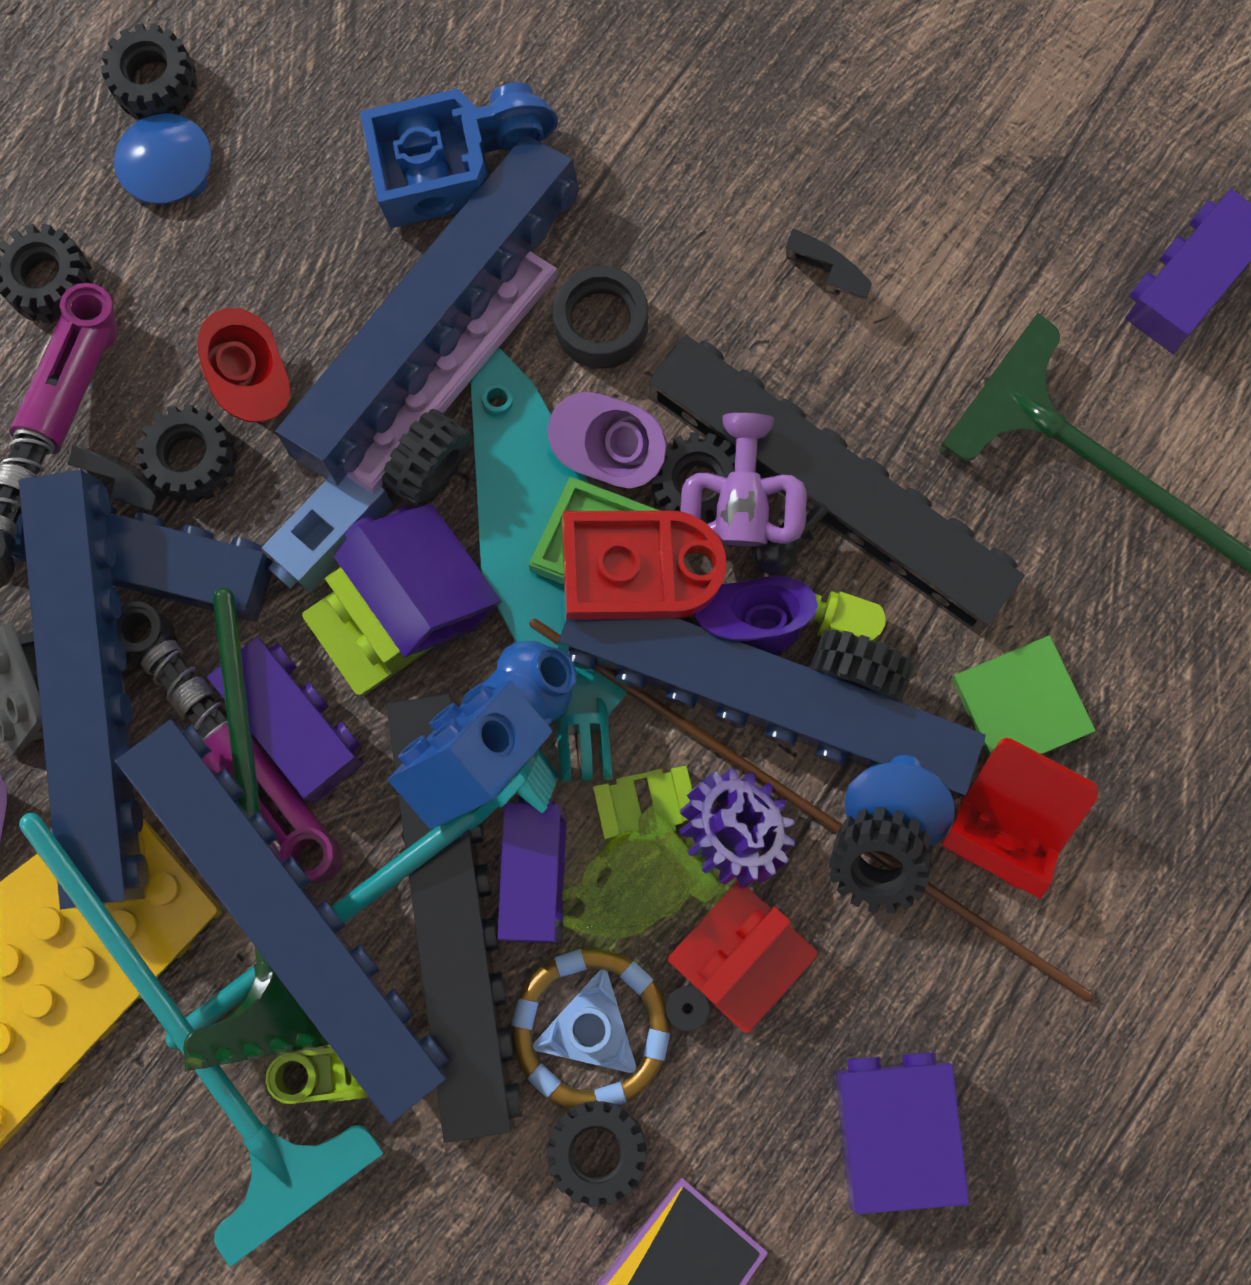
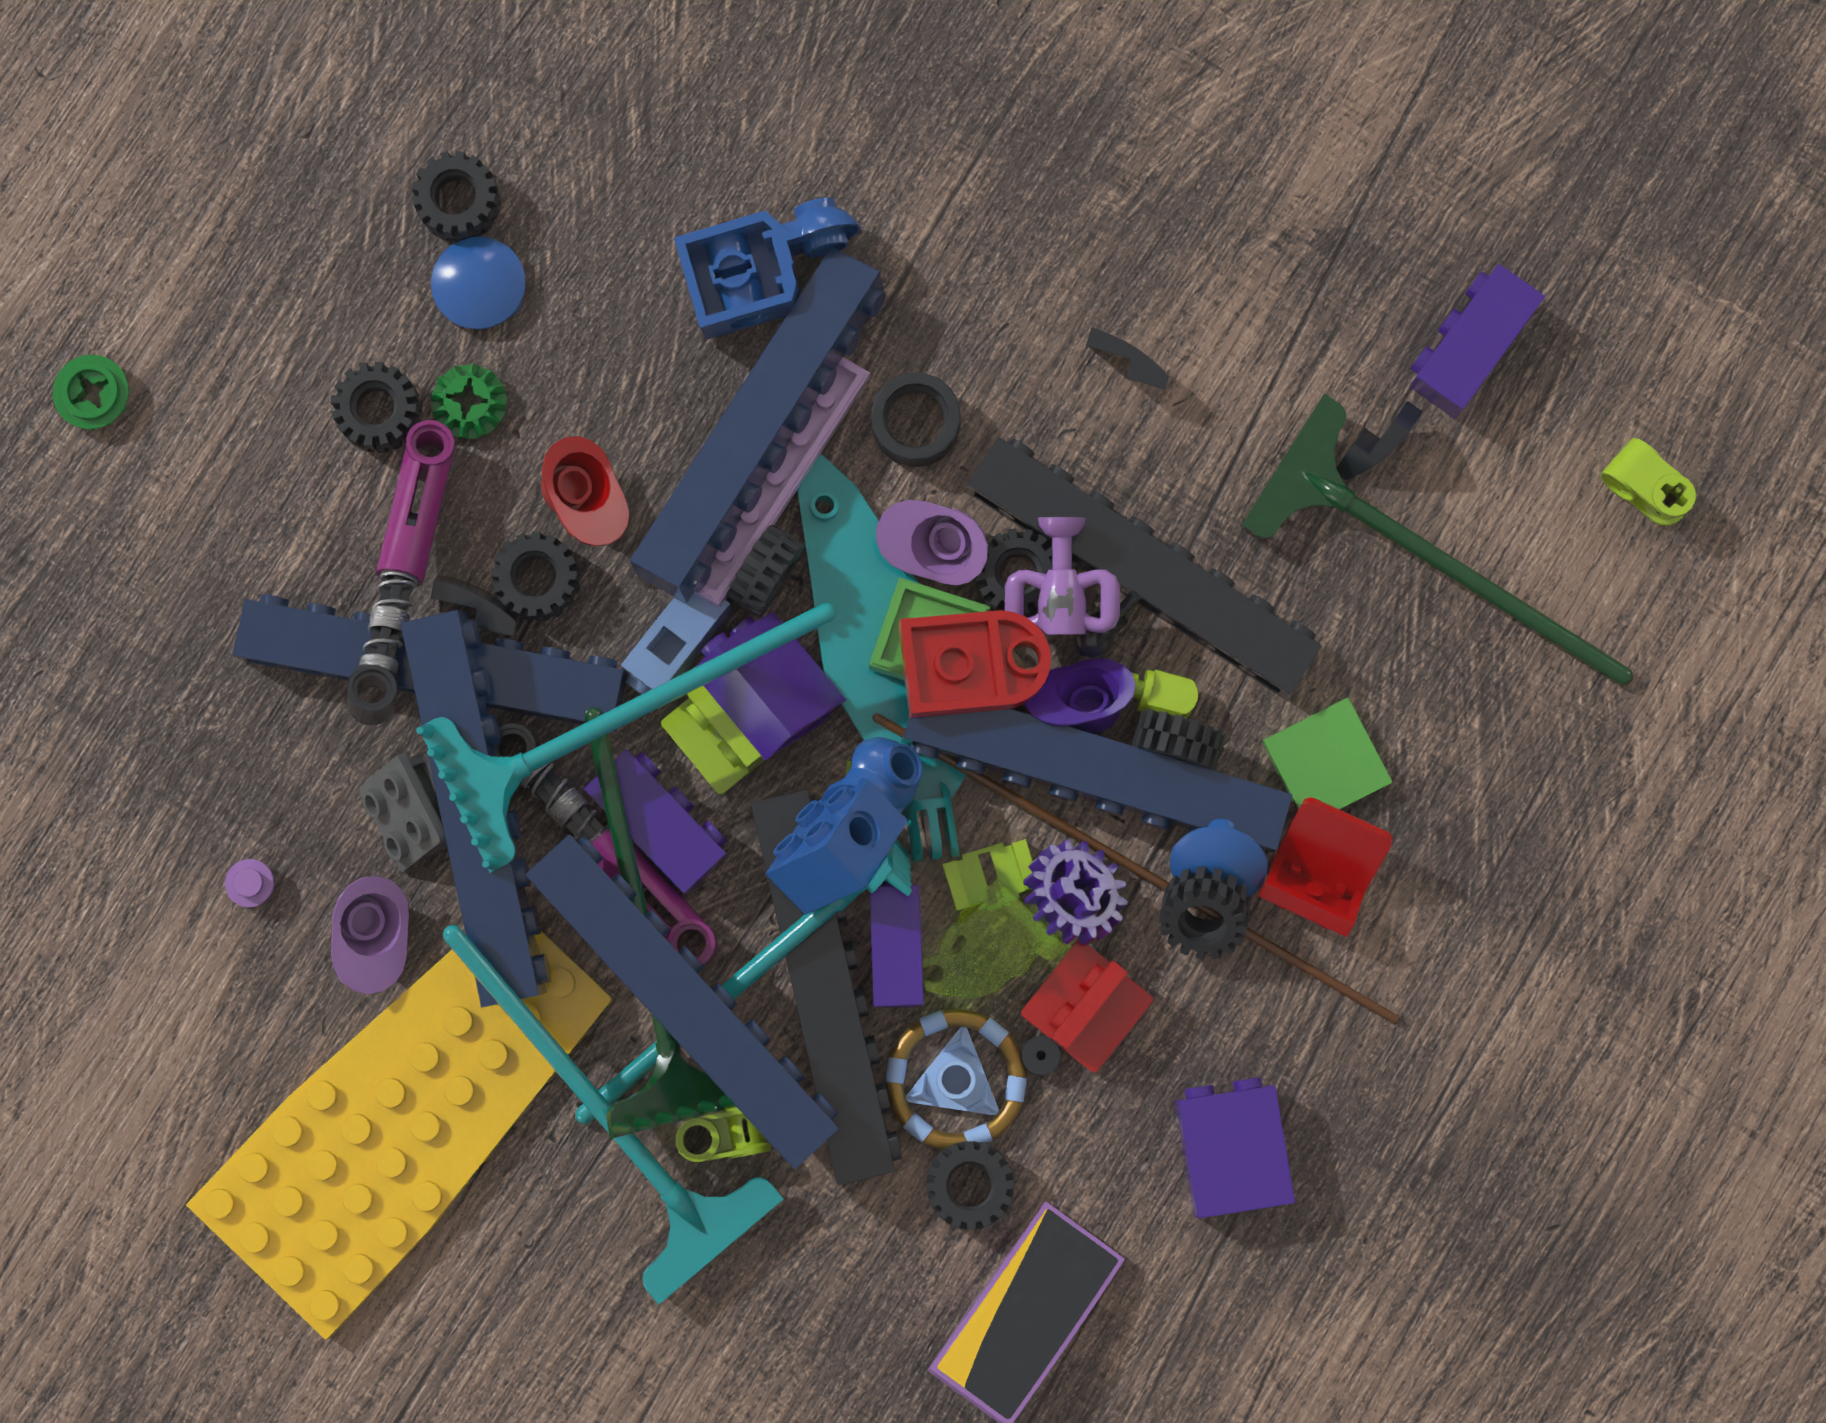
camera: 10 degrees left, 5 degrees up
(89, 658) = (485, 784): none -> teal piece
(150, 290) = (482, 417): none -> green gear
(1081, 377) = (1371, 449): none -> black slope

